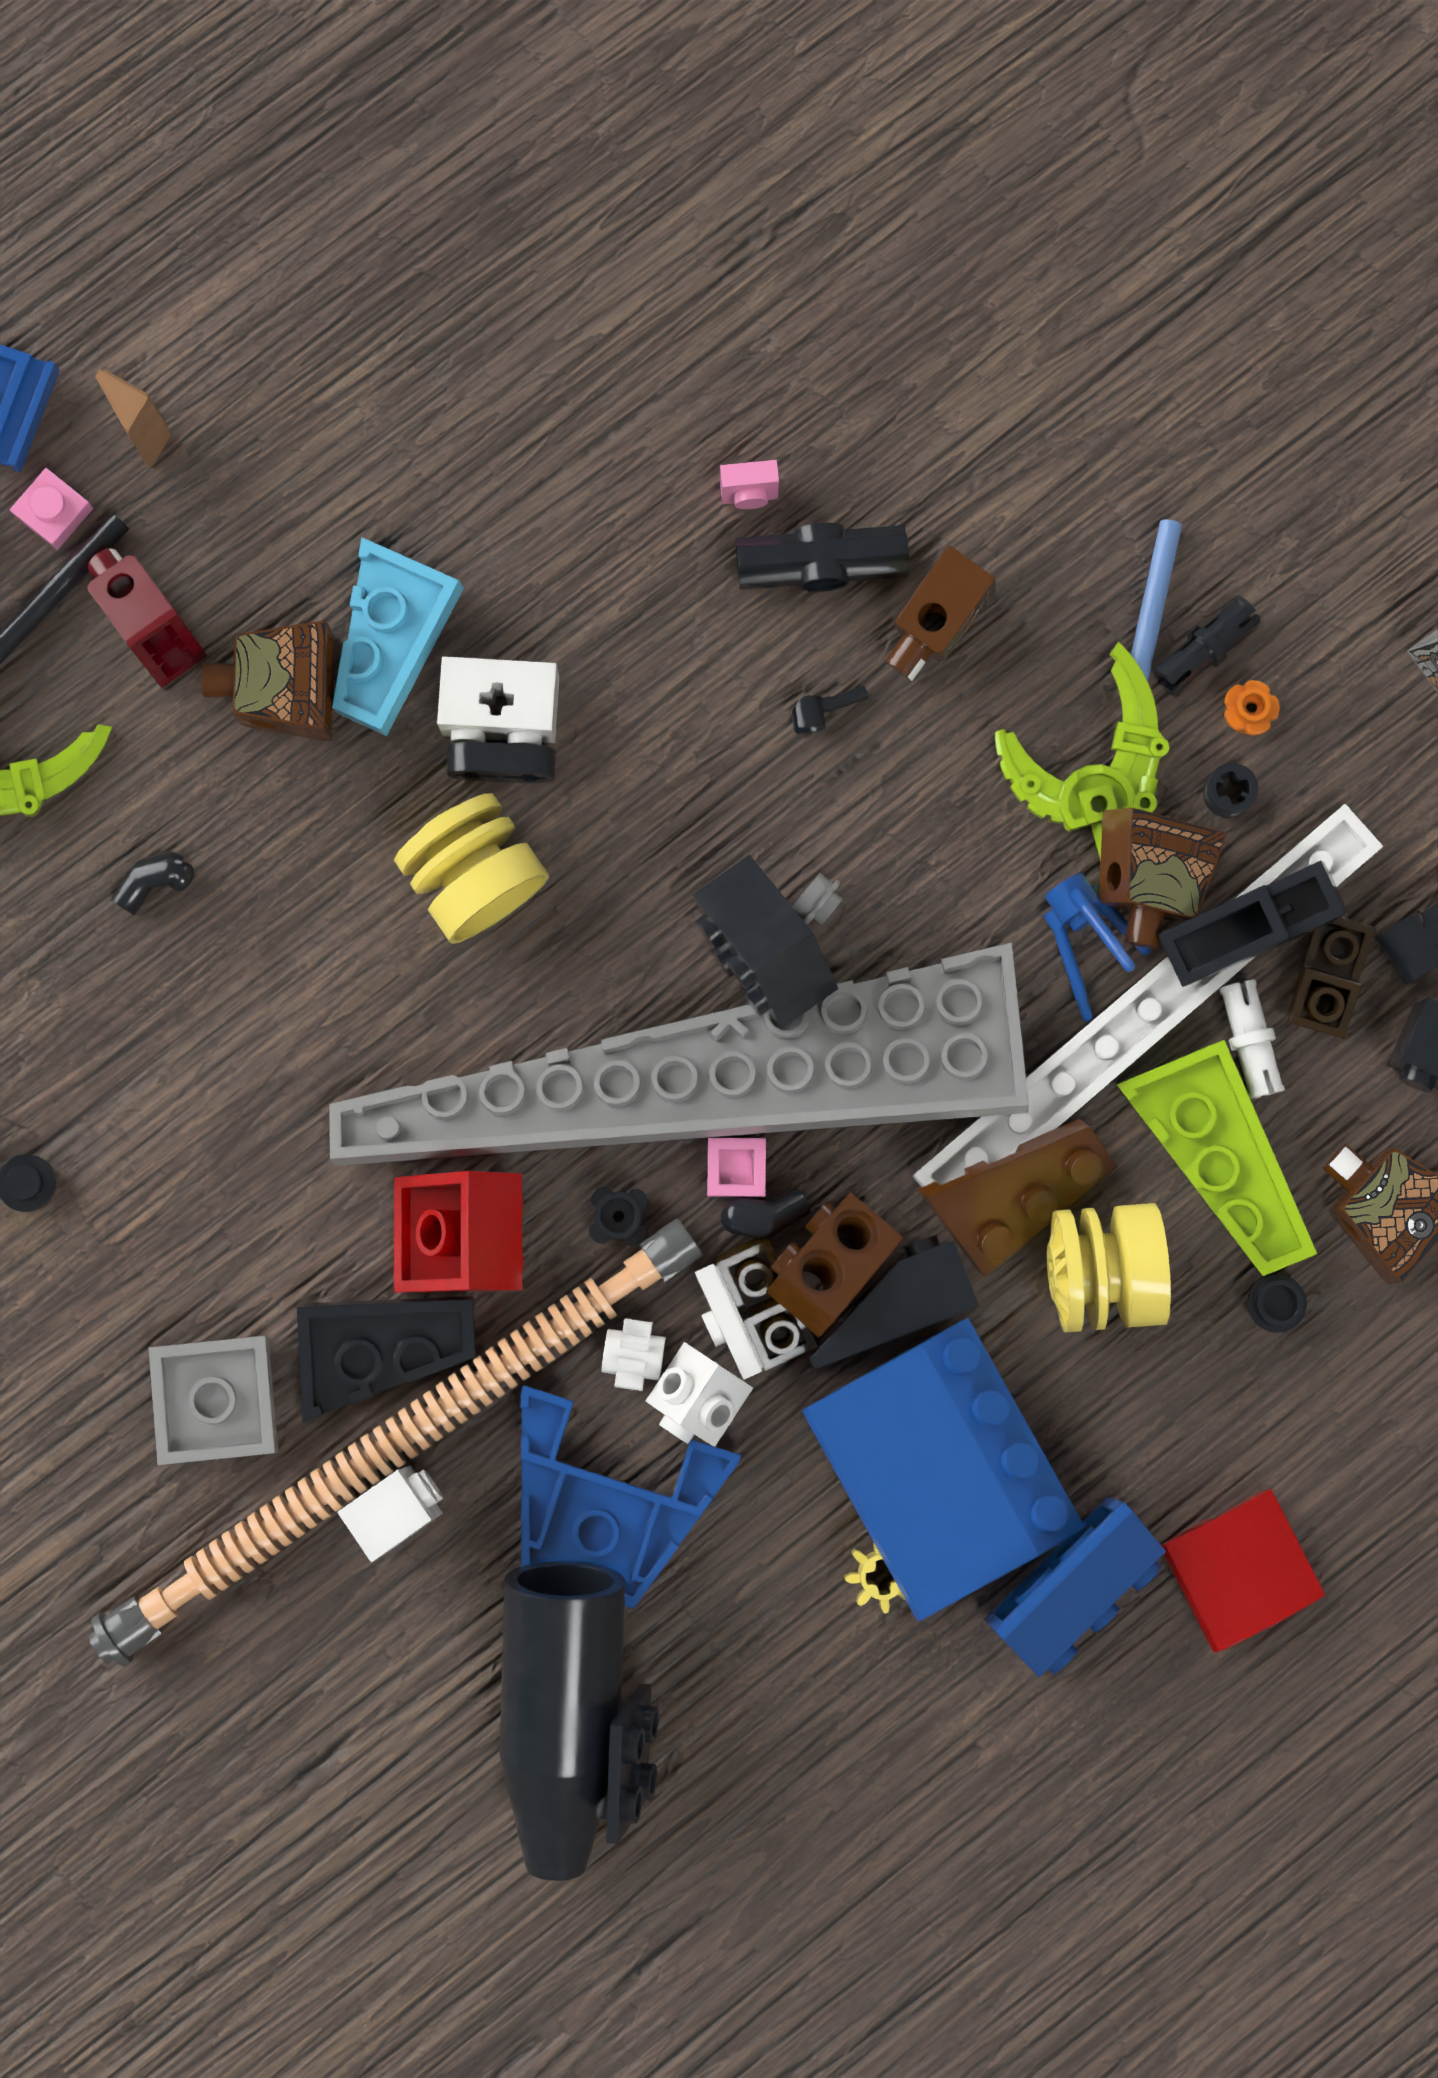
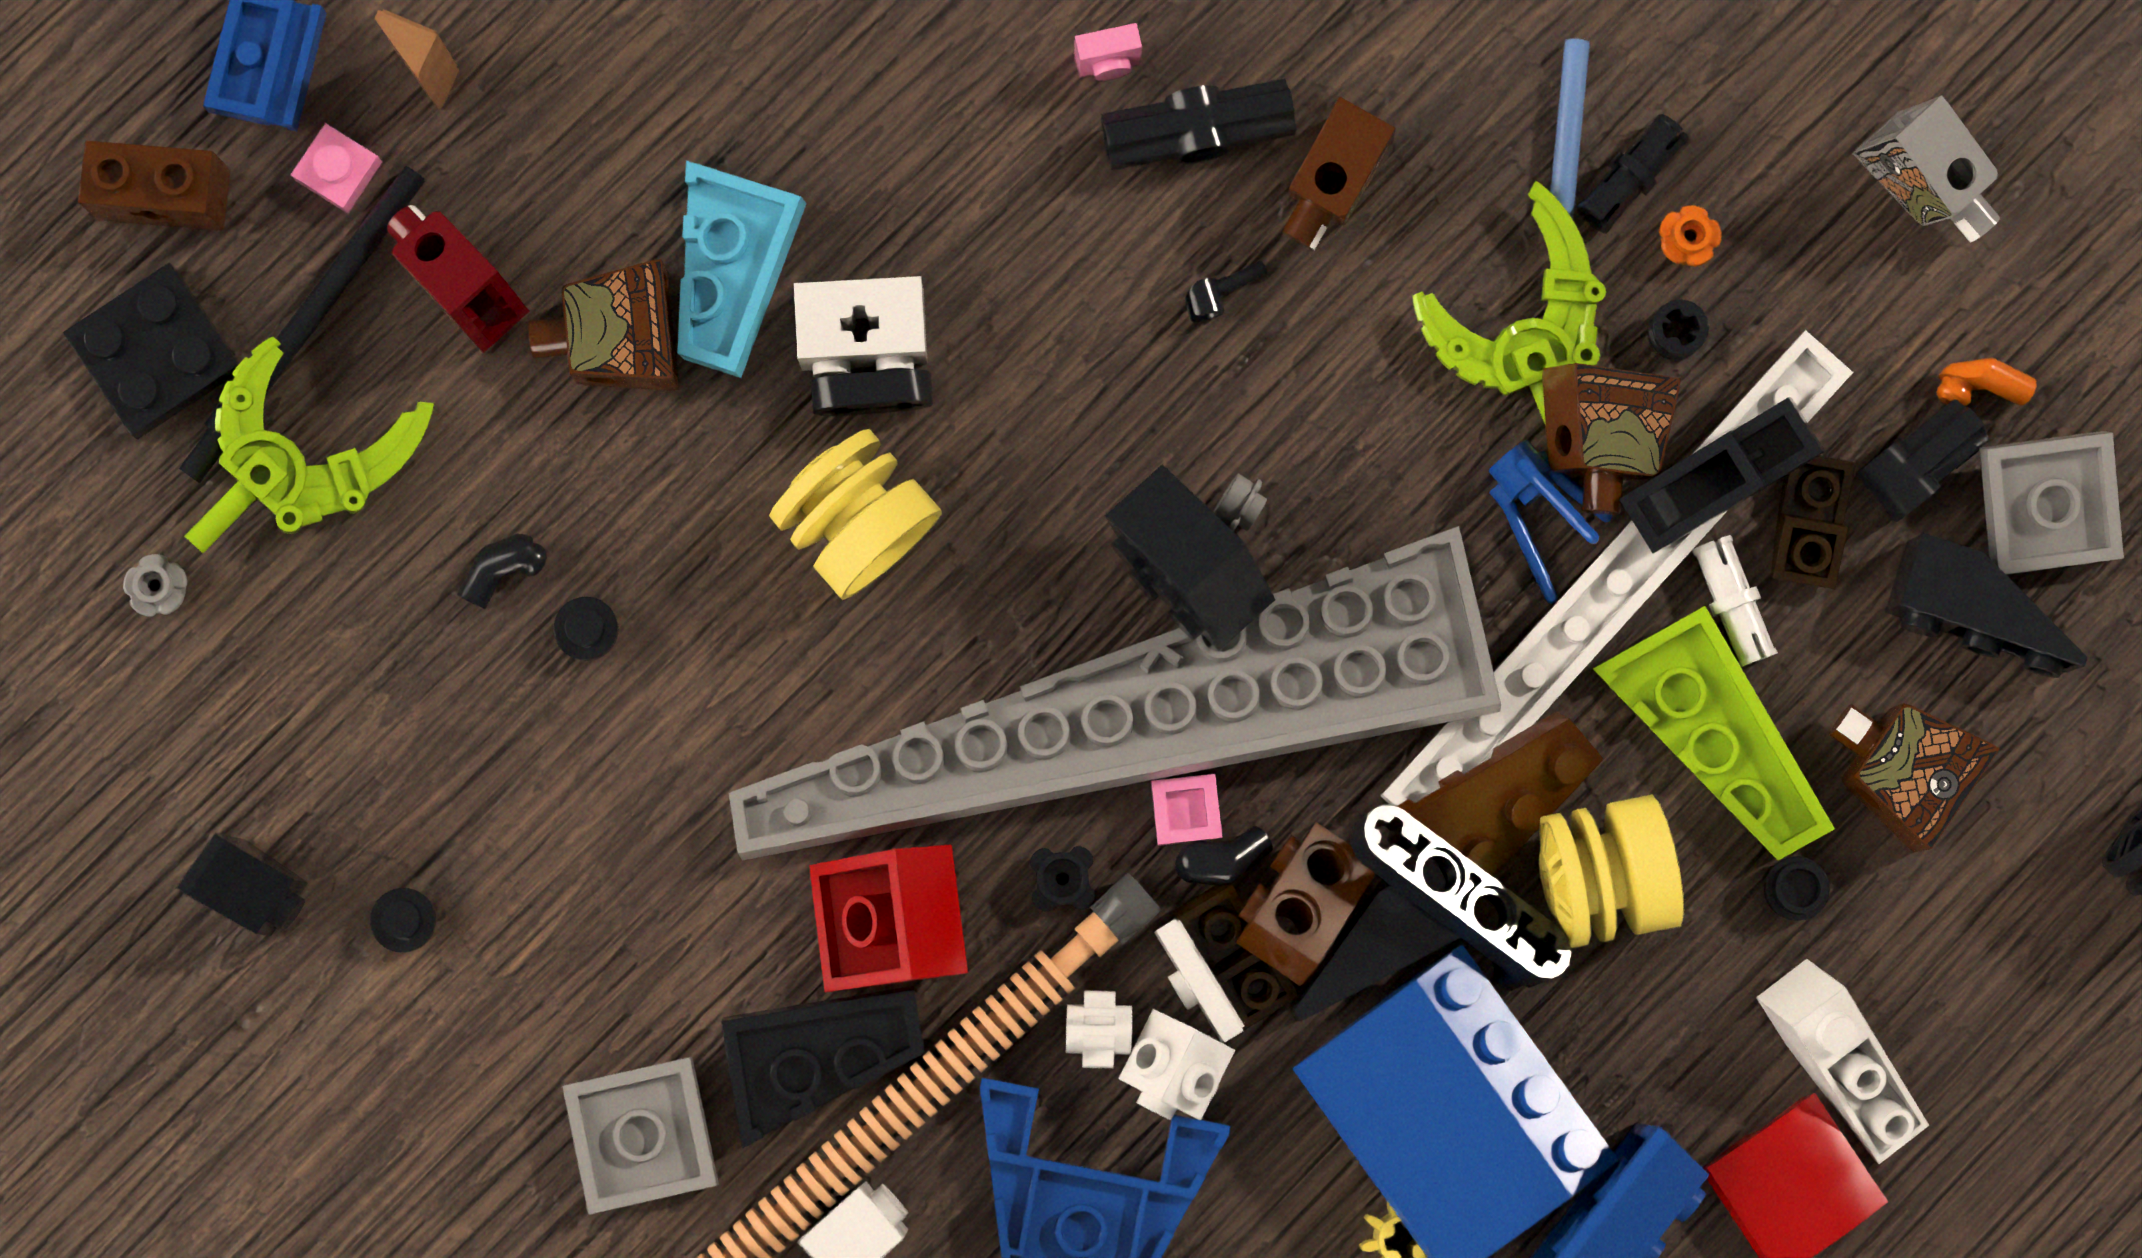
camera: 10 degrees left, 0 degrees up
(221, 943) = (586, 628): none -> black plate
(1010, 1328) = (1519, 955): none -> black beam
(1300, 1461) = (1843, 1058): none -> white slope

